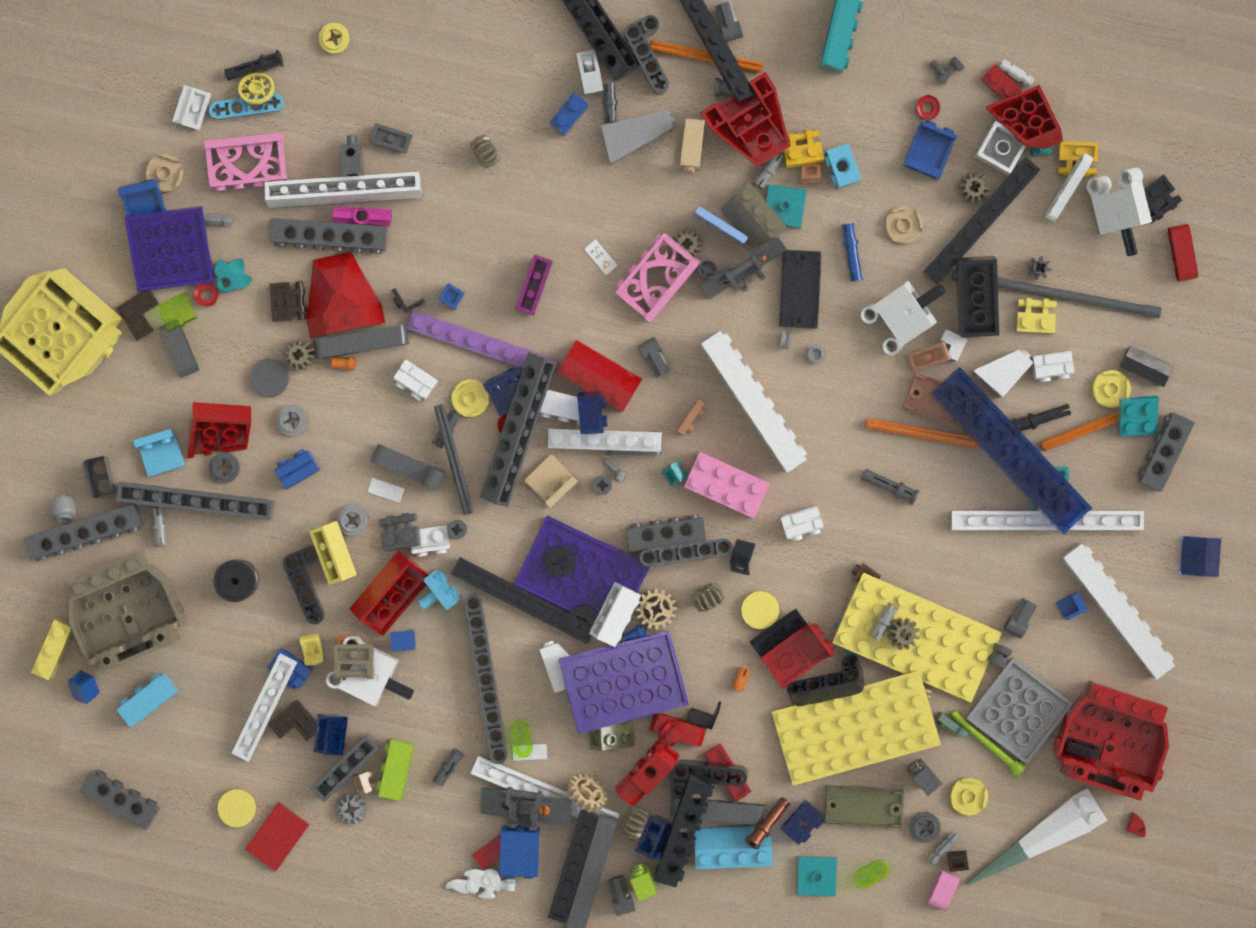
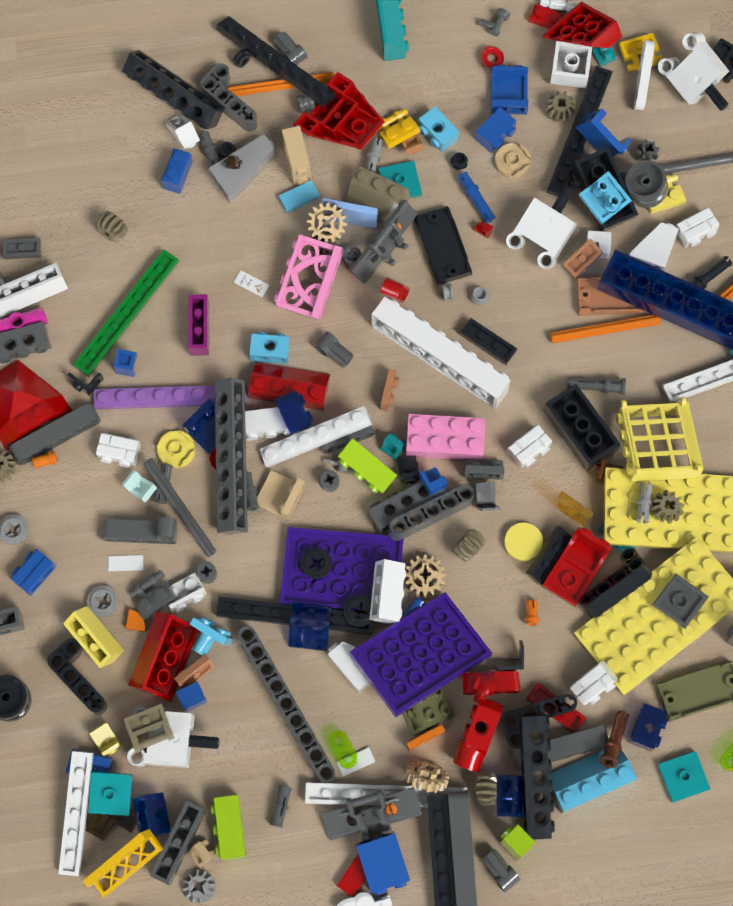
camera: 20 degrees left, 15 degrees down
(289, 763) = (117, 860): none -> yellow fence
(300, 702) = (110, 793): none -> teal plate
(375, 550) = (135, 621): none -> orange tile
(407, 620) = (195, 672): none -> nougat plate
(423, 424) = (139, 486): none -> light aqua bracket
(469, 244) = (126, 313): none -> green plate
(522, 480) = (252, 502): none -> dark grey pin
(533, 616) = (309, 626): none -> clear blue bracket
(582, 332) = (278, 354): none -> medium azure brick
(599, 756) = (425, 737): none -> orange tile
(626, 132) = (233, 162): none -> dark brown plate
(627, 104) = (226, 146): none -> black plate
(641, 486) = (366, 466): none -> lime brick
(676, 14) = (241, 58): none -> black bush
(679, 184) = (299, 196): none -> medium azure tile
(680, 501) = (408, 469): none -> black bracket
(694, 233) = (322, 217): none -> tan gear
(697, 525) = (433, 481): none -> blue panel
(733, 324) = (394, 290): none -> red beam
(750, 527) = (484, 469): none -> dark grey bracket
(770, 766) = (593, 683): none -> white brick
(805, 404) = (488, 341): none -> black plate
(818, 600) = (573, 509): none -> clear yellow plate
(845, 287) = (483, 228): none -> red tile
(855, 207) = (459, 157): none -> black plate
(857, 524) = (581, 427): none -> black brick
(877, 725) = (680, 601): none -> dark grey tile
(899, 188) = (495, 130): none -> blue brick
(952, 572) = (688, 433): none -> light yellow window
(972, 310) = (605, 197): none -> medium azure plate
(992, 224) = (599, 135): none -> blue panel
(1029, 314) = (647, 183): none -> dark grey wheel

